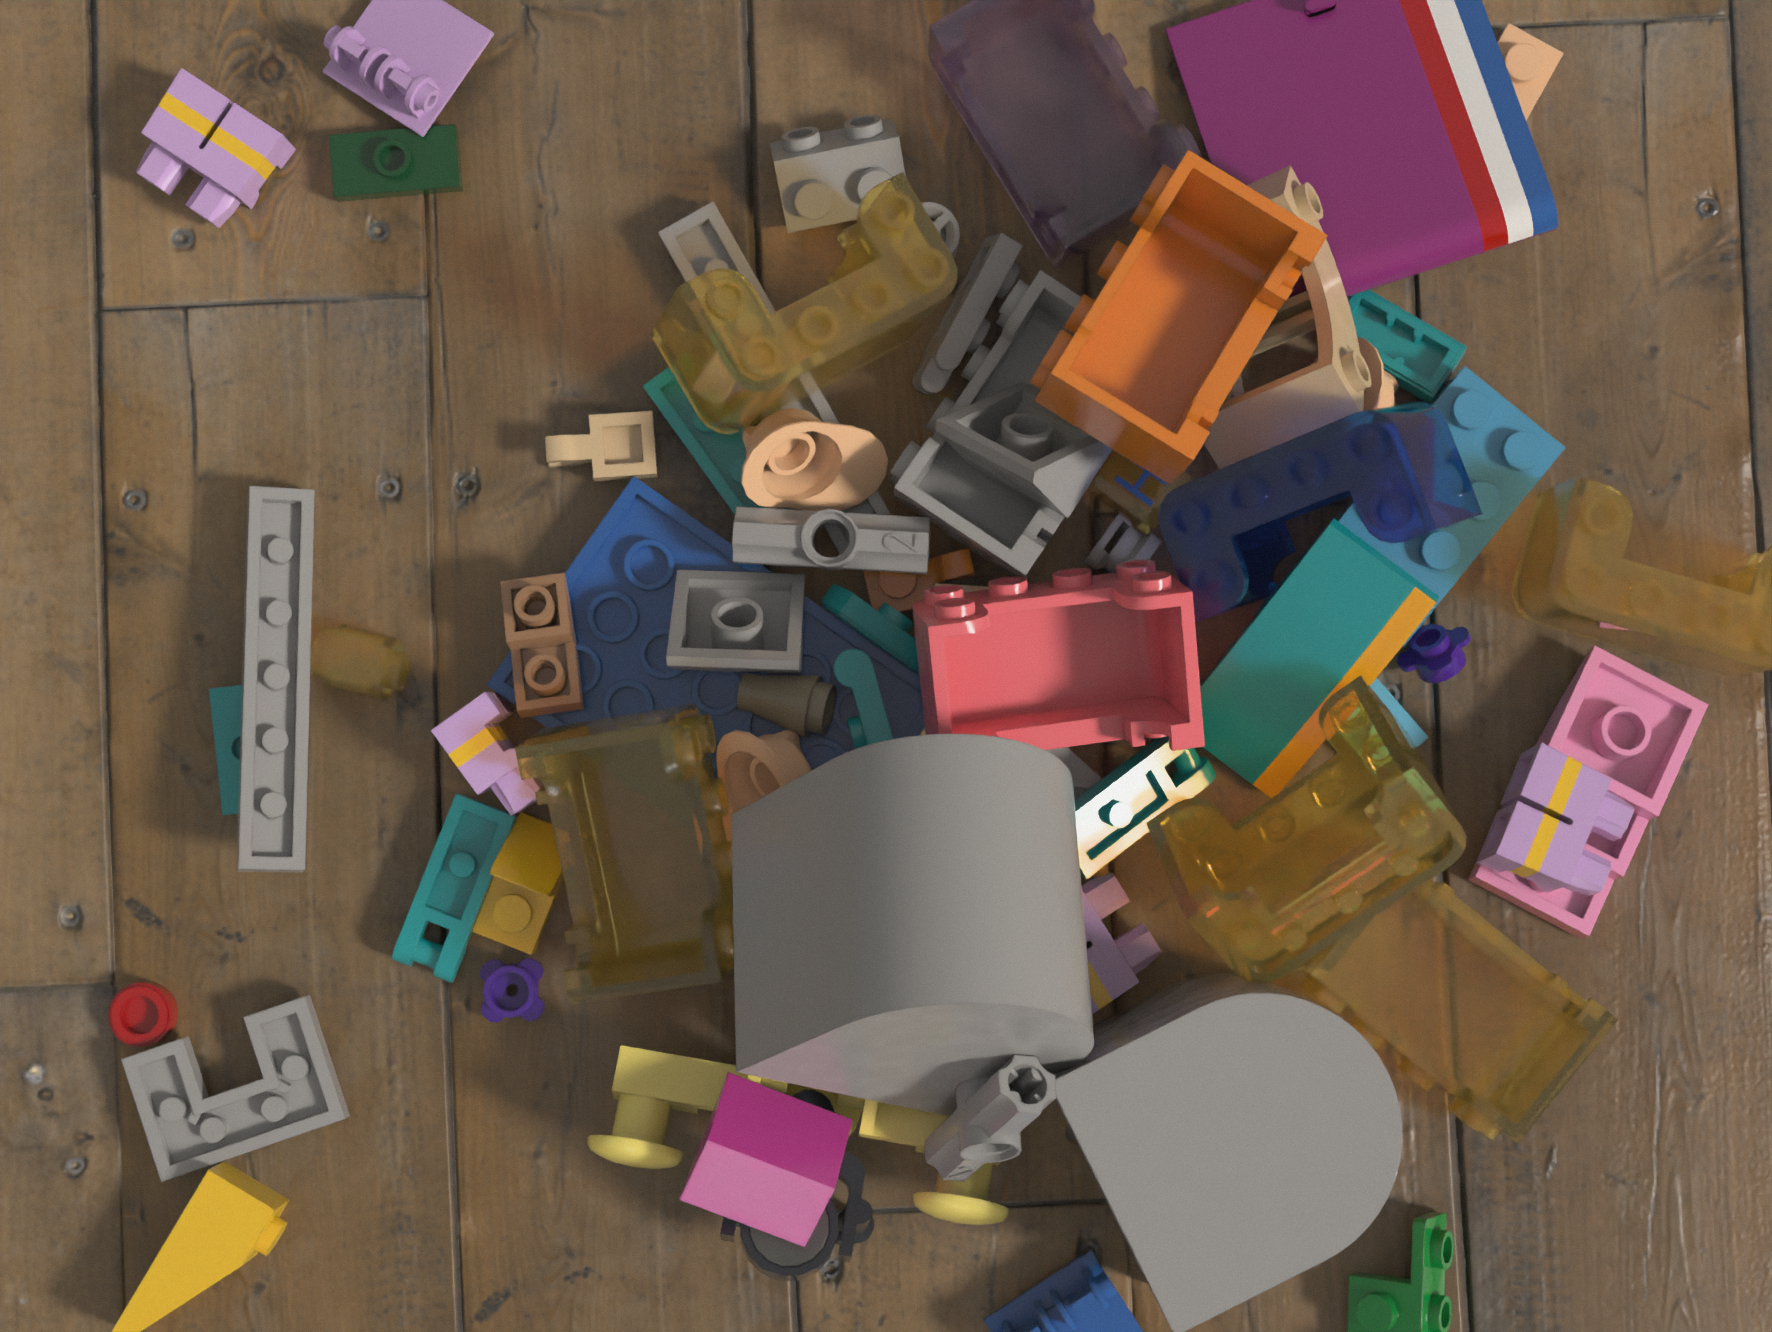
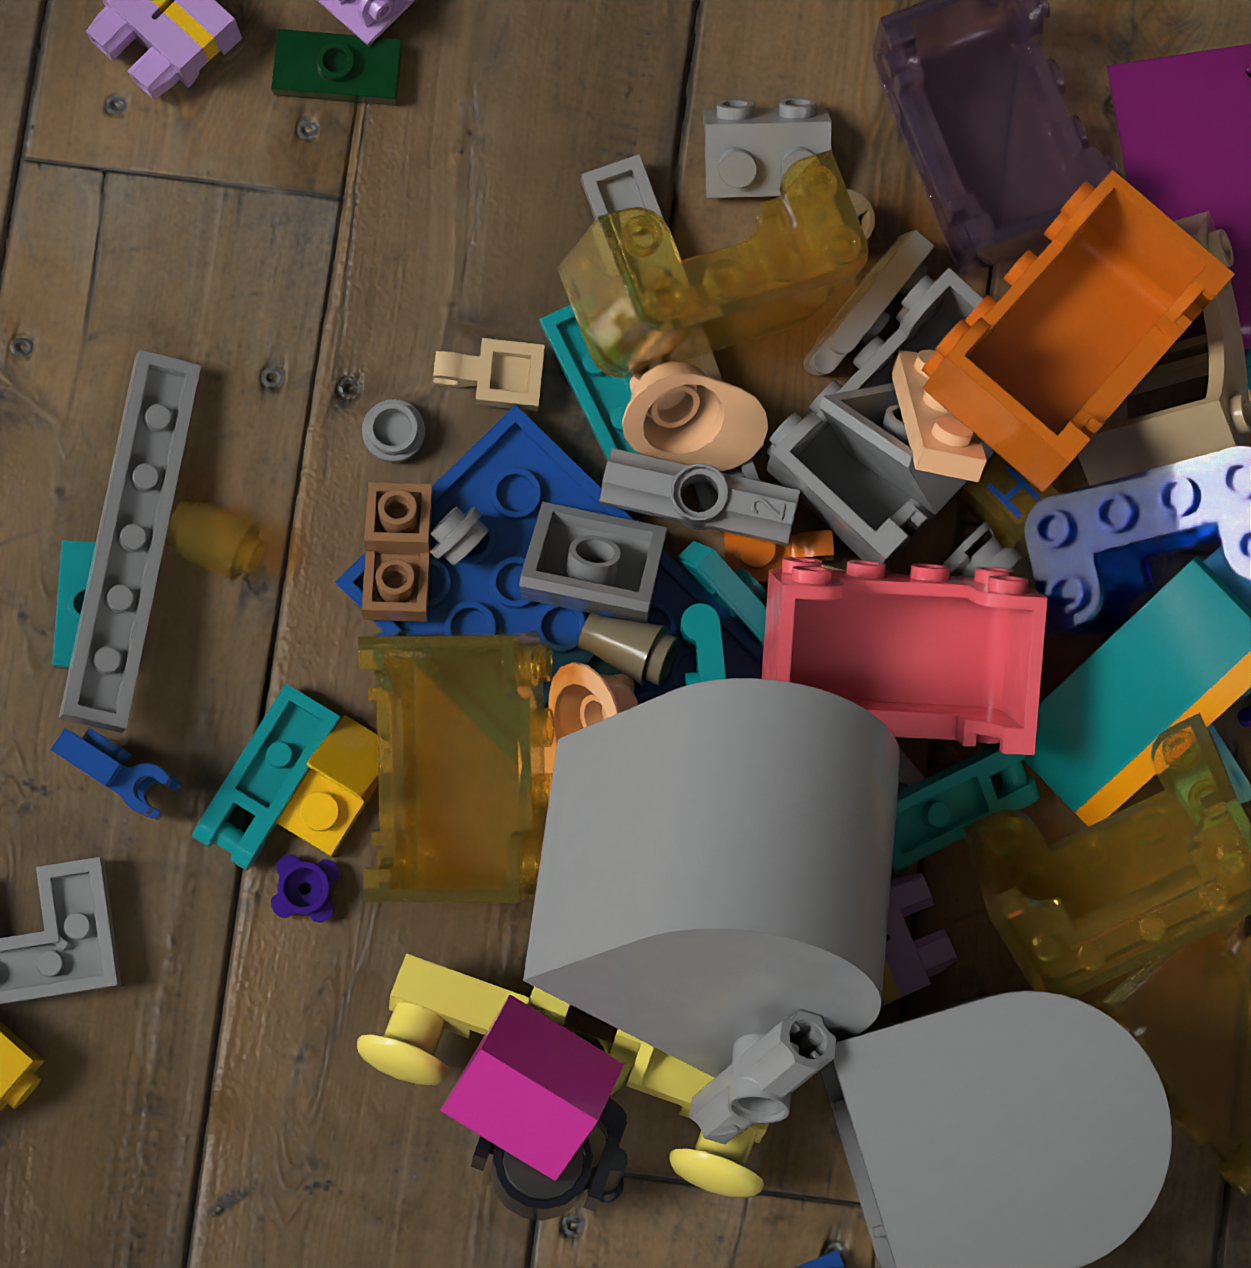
camera: 10 degrees right, 5 degrees down
(292, 908) = (107, 764): none -> blue plate
(486, 752) = (325, 654): lavender hips -> none
(518, 522) = (393, 431): none -> light grey plate
(598, 618) = (457, 534): none -> light grey plate
(1055, 446) = (934, 435): none -> light nougat plate

